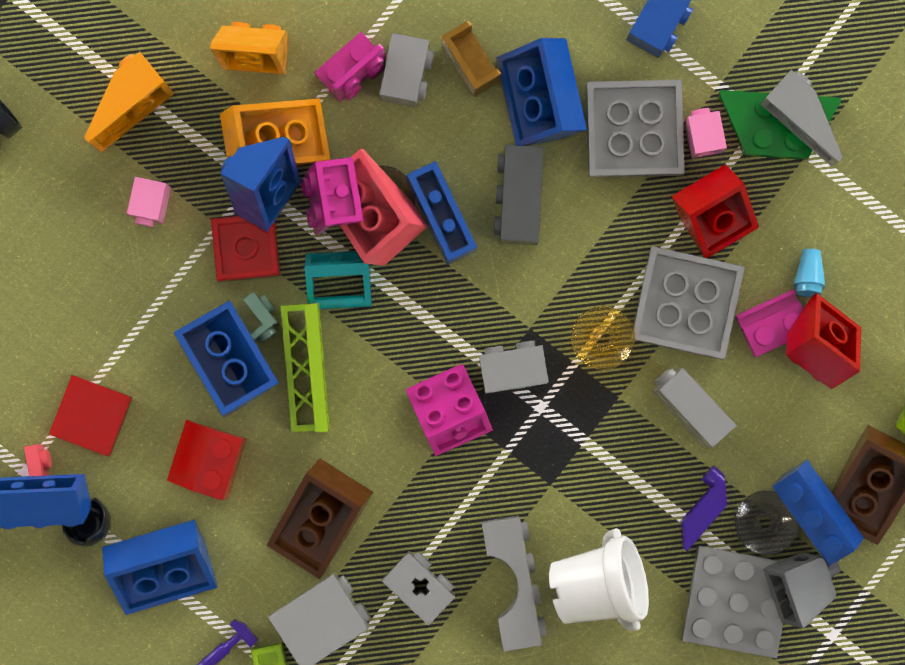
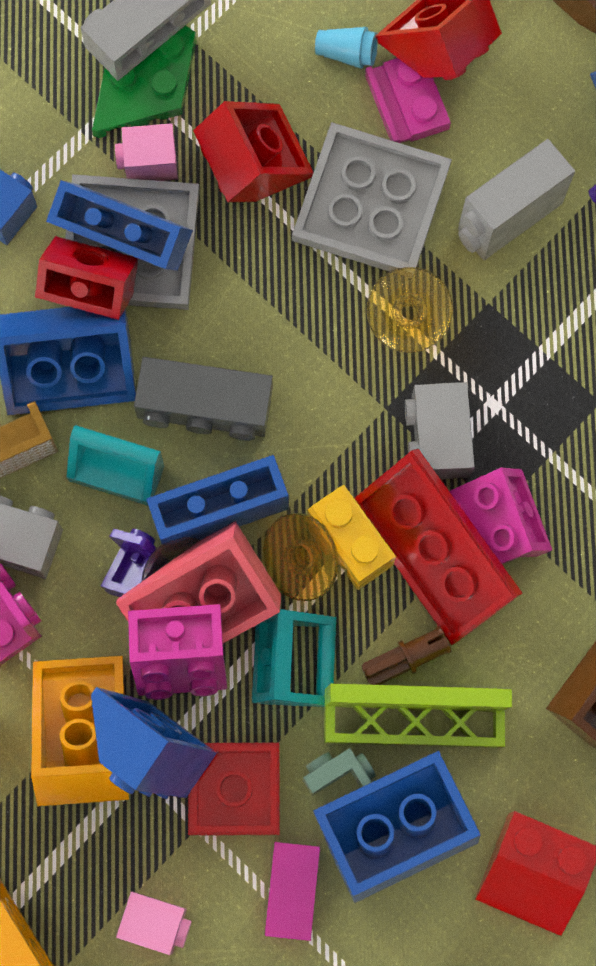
camera: 85 degrees left, 10 degrees down
(179, 294) = (292, 891): none -> dark pink tile
(346, 357) = (406, 657): none -> reddish brown axle
(394, 156) = (129, 562): none -> dark purple bracket
(409, 275) = (287, 557): none -> clear yellow dish
(426, 370) = (437, 547): none -> red tile
(427, 310) = (355, 537): none -> yellow brick
(462, 137) = (113, 465): none -> teal tile
(596, 98) = (86, 277): none -> red brick
(638, 117) = (119, 225): none -> blue brick

